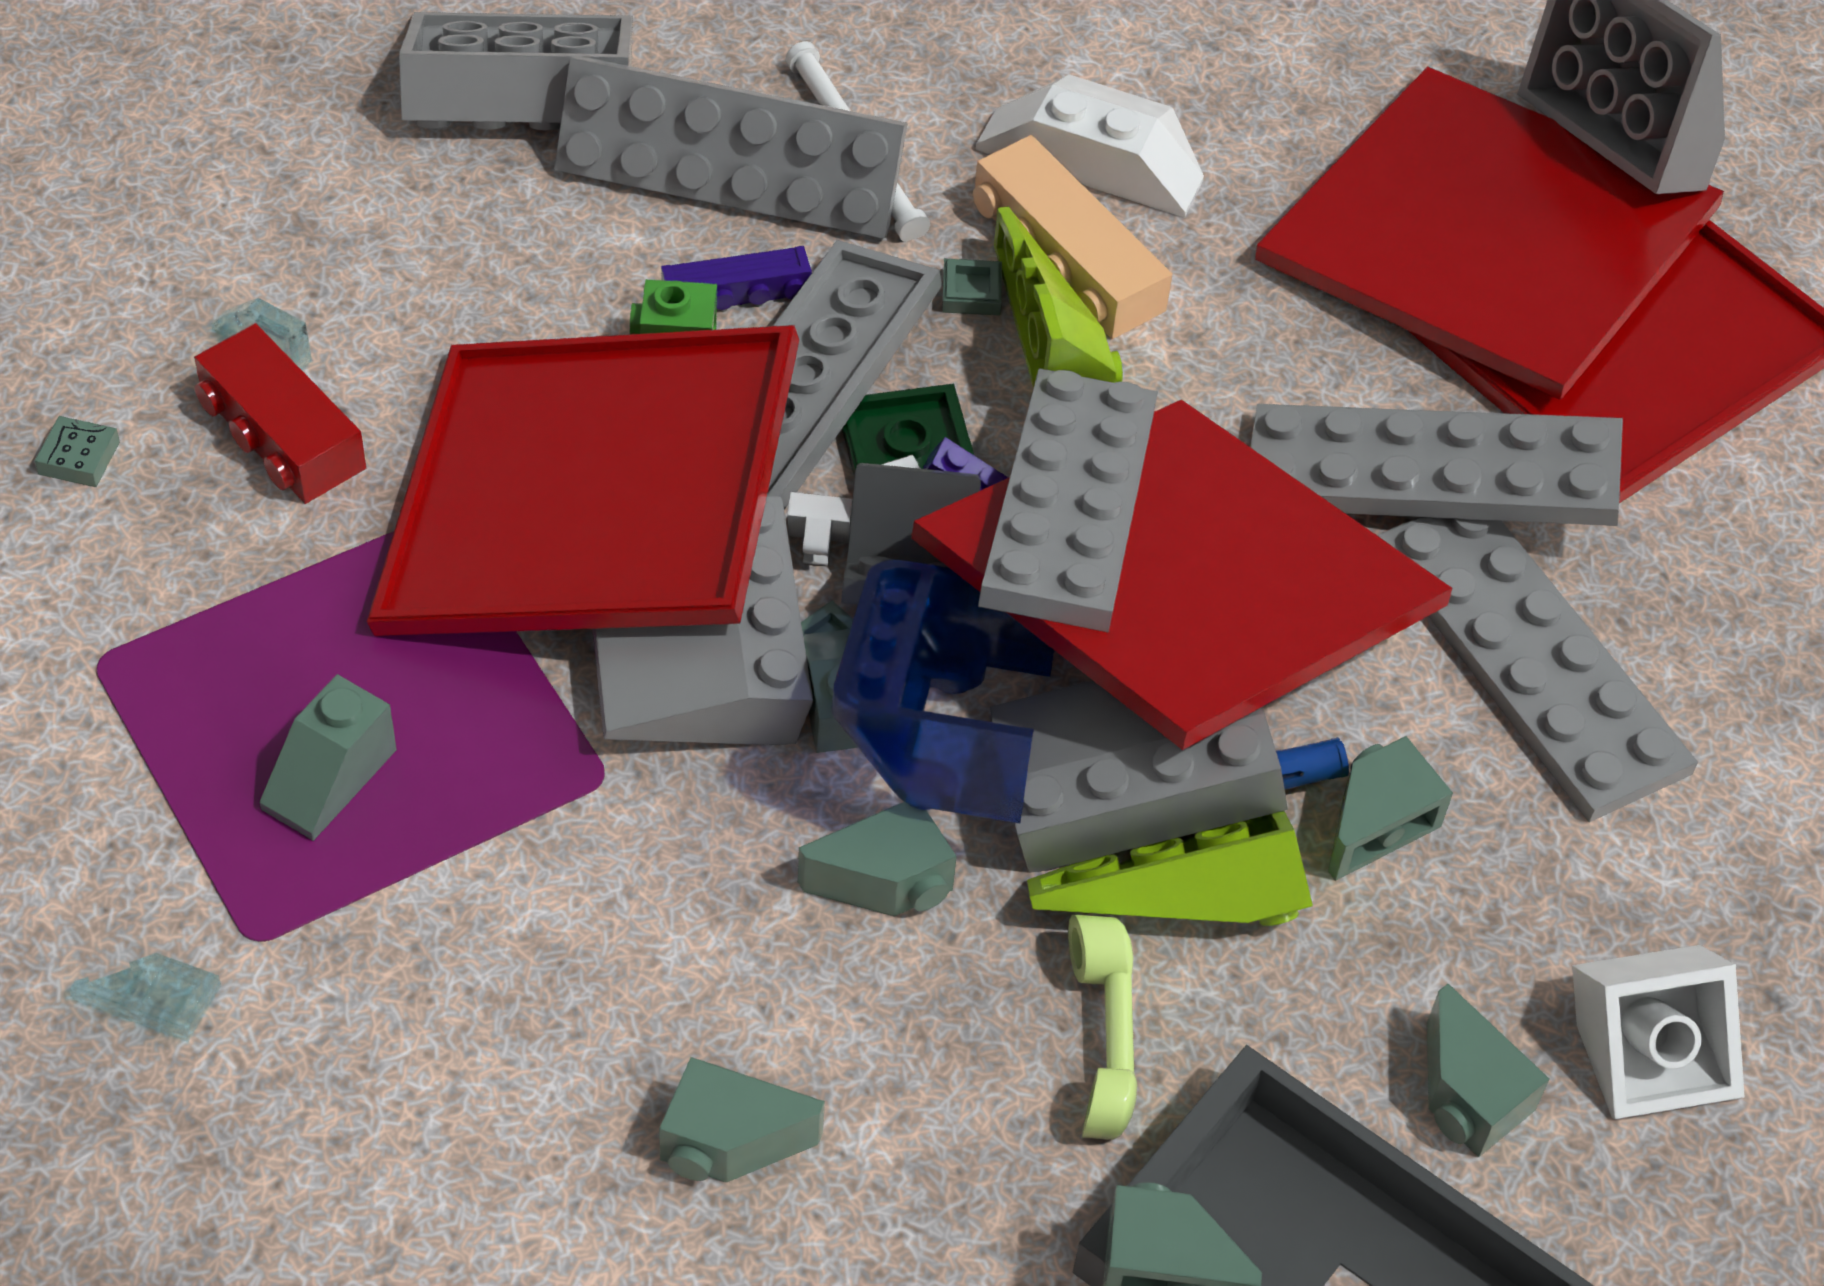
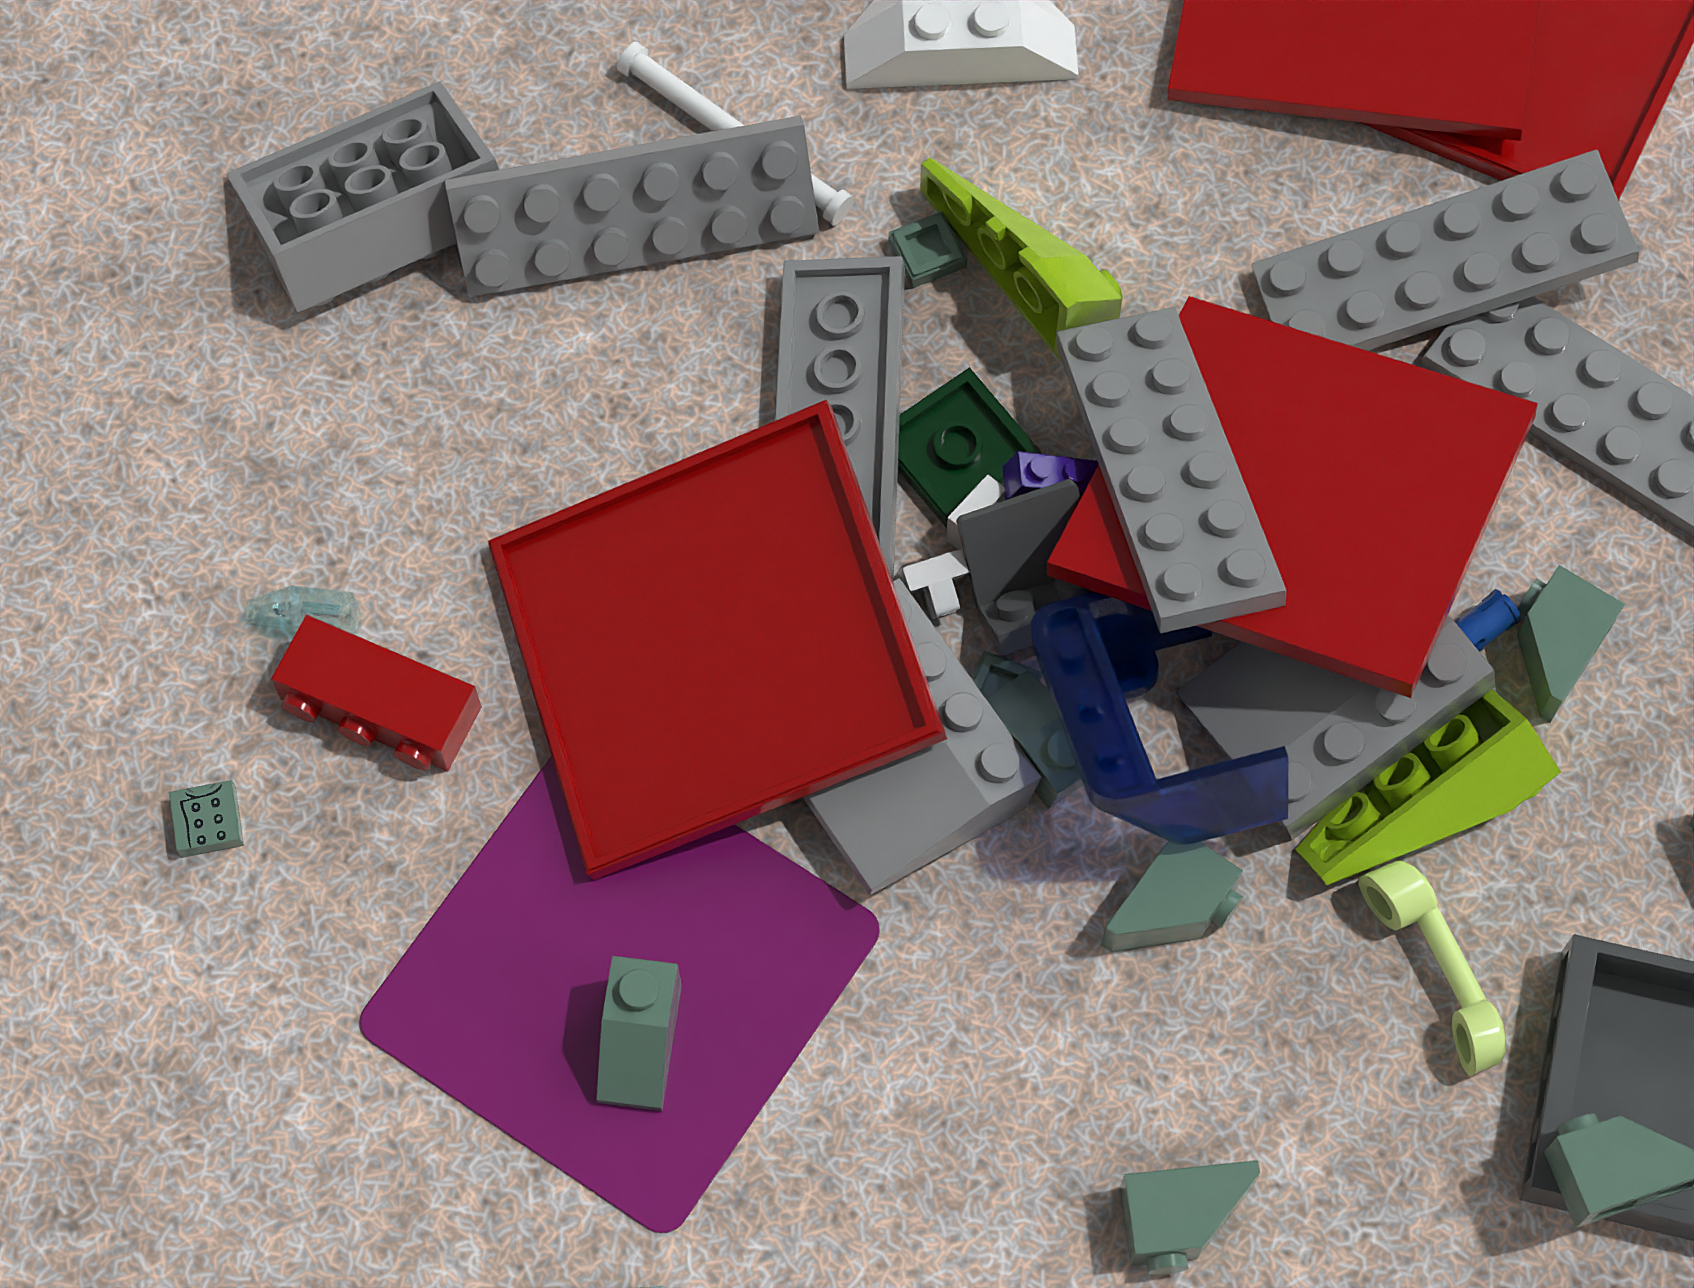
camera: 20 degrees left, 15 degrees up
(674, 307) = (687, 419): bright green brick -> none
(747, 277) = (710, 346): dark purple piece -> none
(1079, 235) = (997, 152): light nougat brick -> none

